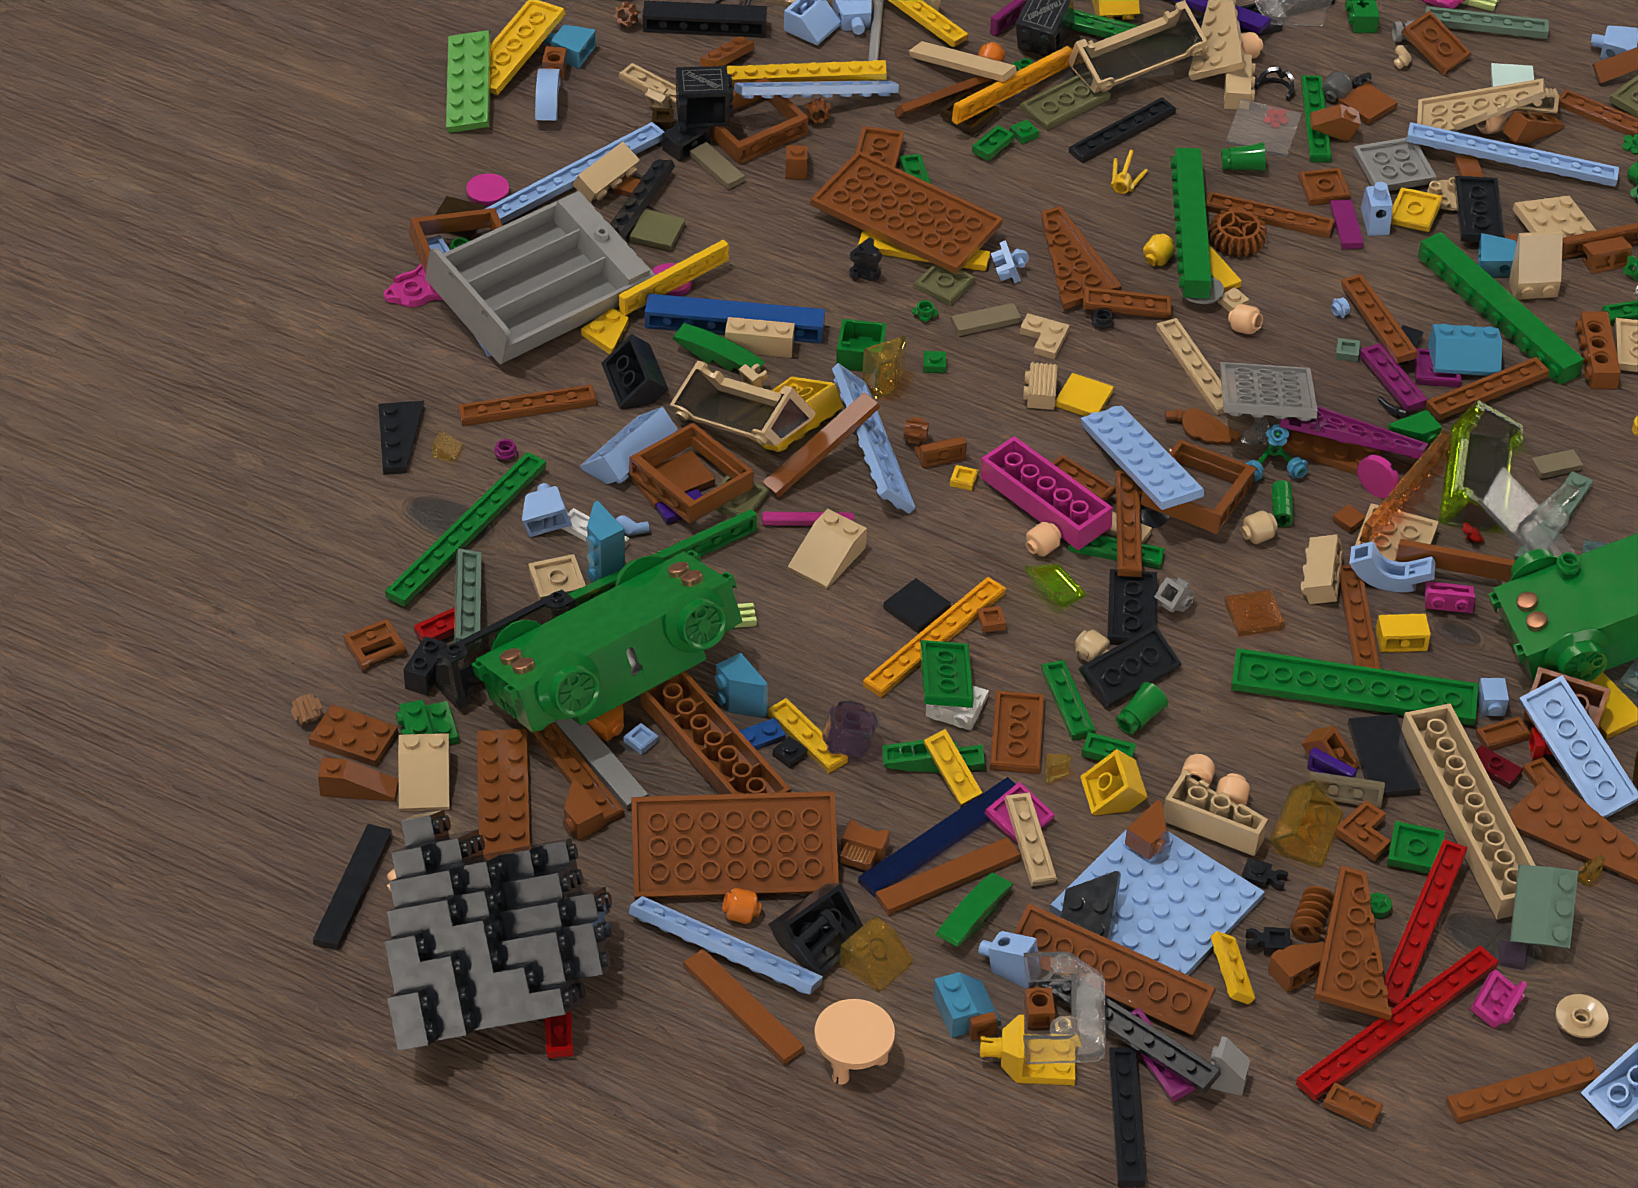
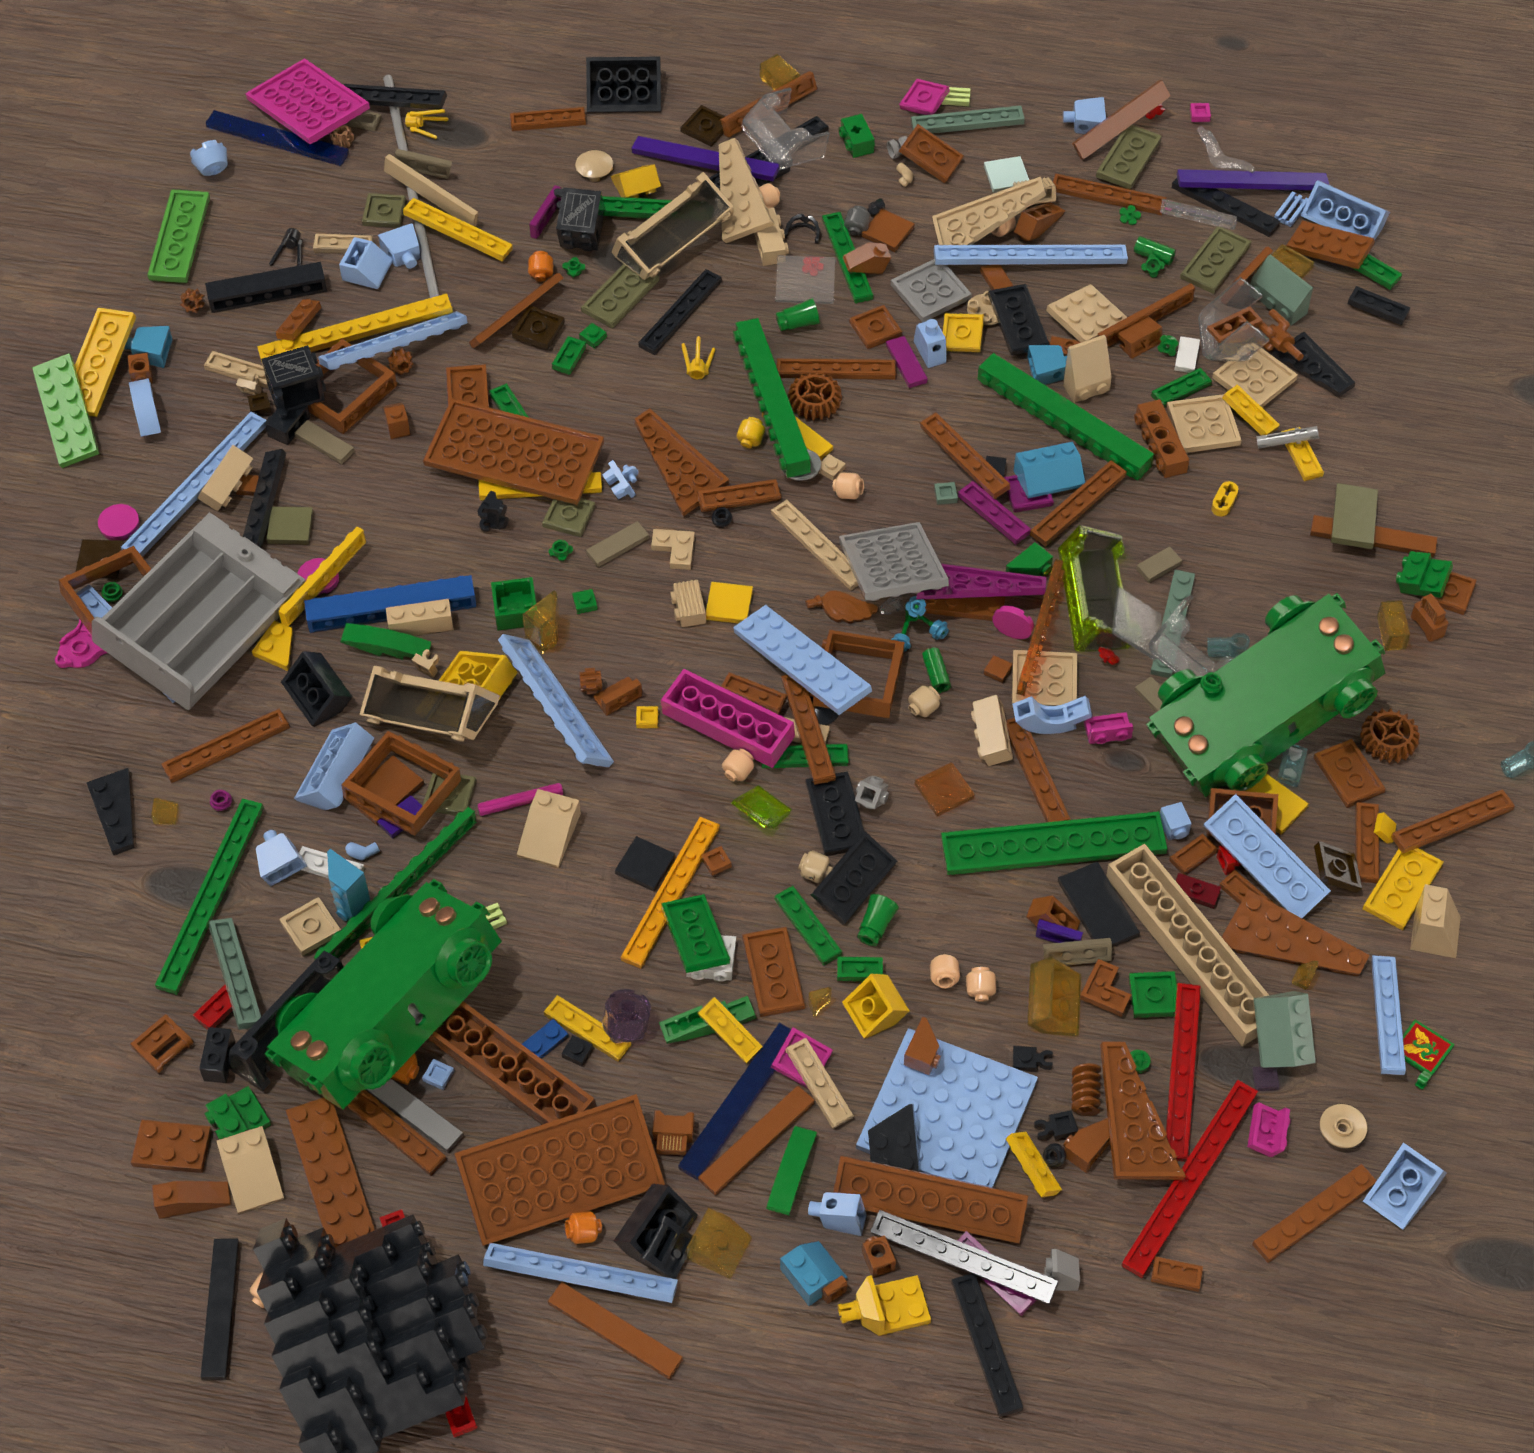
camera: 15 degrees left, 10 degrees up
(306, 708) = (119, 1133): medium nougat gear -> none
(581, 813) = (408, 1171): dark orange slope -> none
(741, 687) = (515, 999): dark azure slope -> none
(821, 444) = (511, 722): dark orange tile -> none
(854, 1036) = (727, 1340): light nougat piece -> none
(963, 61) = (517, 277): tan tile -> none
(1018, 82) = (569, 292): light orange tile -> none
(1076, 1036) = (931, 1280): clear windscreen -> none
(1213, 815) = (972, 1013): tan wedge -> none
(1252, 964) = (1049, 1158): none -> black plate
(1340, 307) = (927, 451): light blue plate -> none
(1394, 410) = (1004, 545): black helmet -> none
(1402, 633) = (1079, 776): yellow brick -> none
(1456, 560) = (1107, 691): dark orange tile -> none

